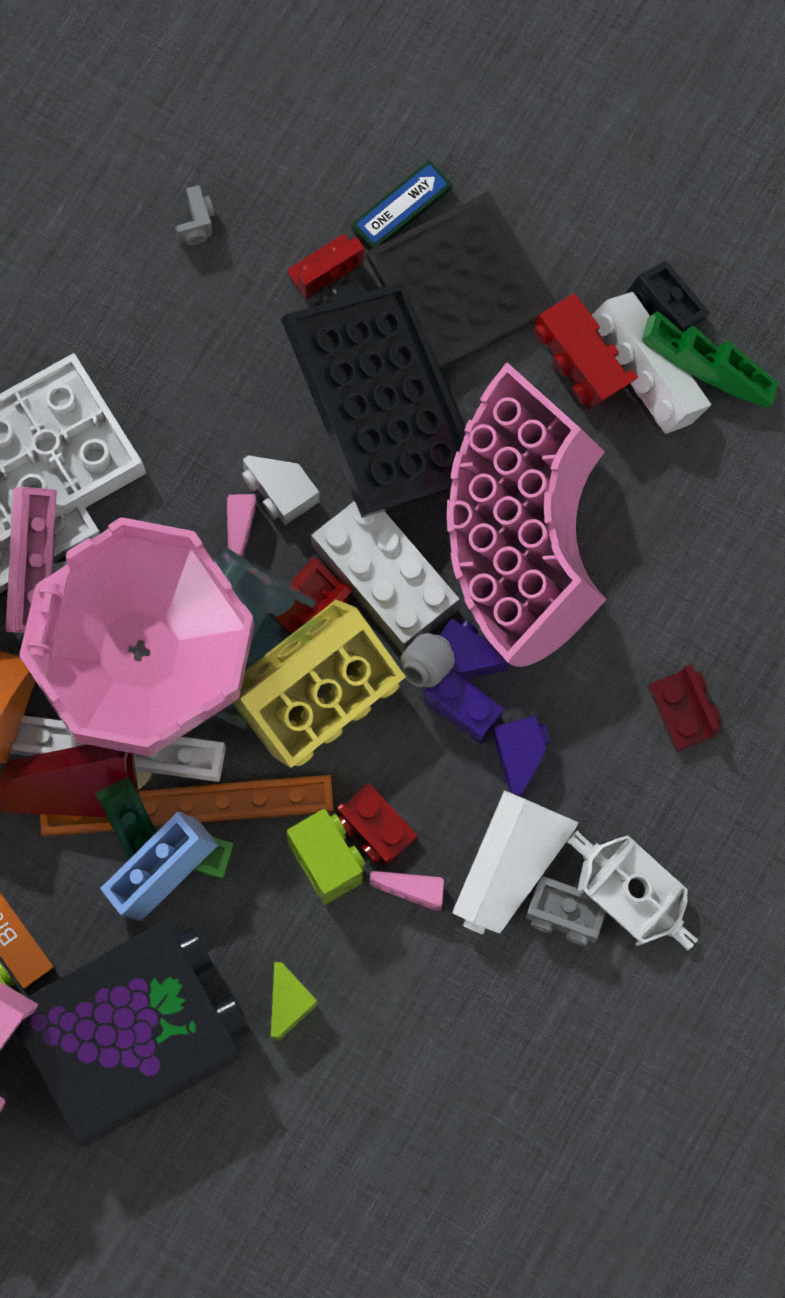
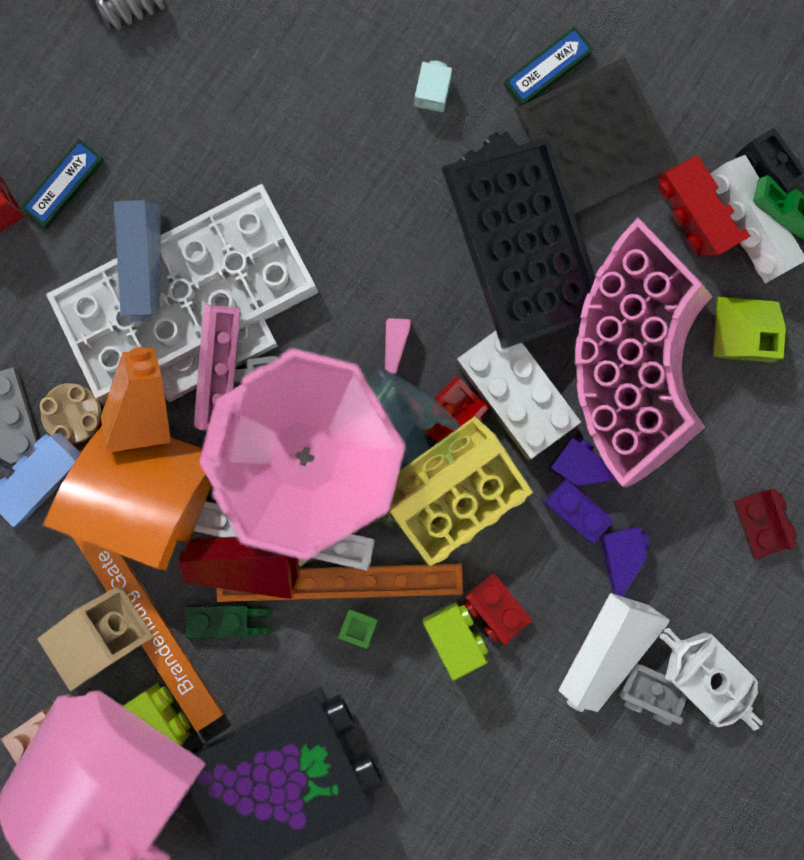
camera: 10 degrees right, 10 degrees up
(51, 858) = (224, 621): none -> dark green hinge
(126, 815) = (292, 605): dark green tile -> none
(159, 866) = (313, 641): light blue brick -> none
(201, 209) = (376, 62): light grey bracket -> none
(268, 234) = (433, 86): none -> light aqua brick
(283, 485) = (434, 310): white slope -> none
(289, 1002) = (418, 758): lime slope -> none
(327, 265) = (481, 116): red bracket -> none
(415, 888) = (531, 667): bright pink slope -> none
(427, 660) = (551, 477): light grey head -> none
(649, 489) = (748, 330): none -> lime slope

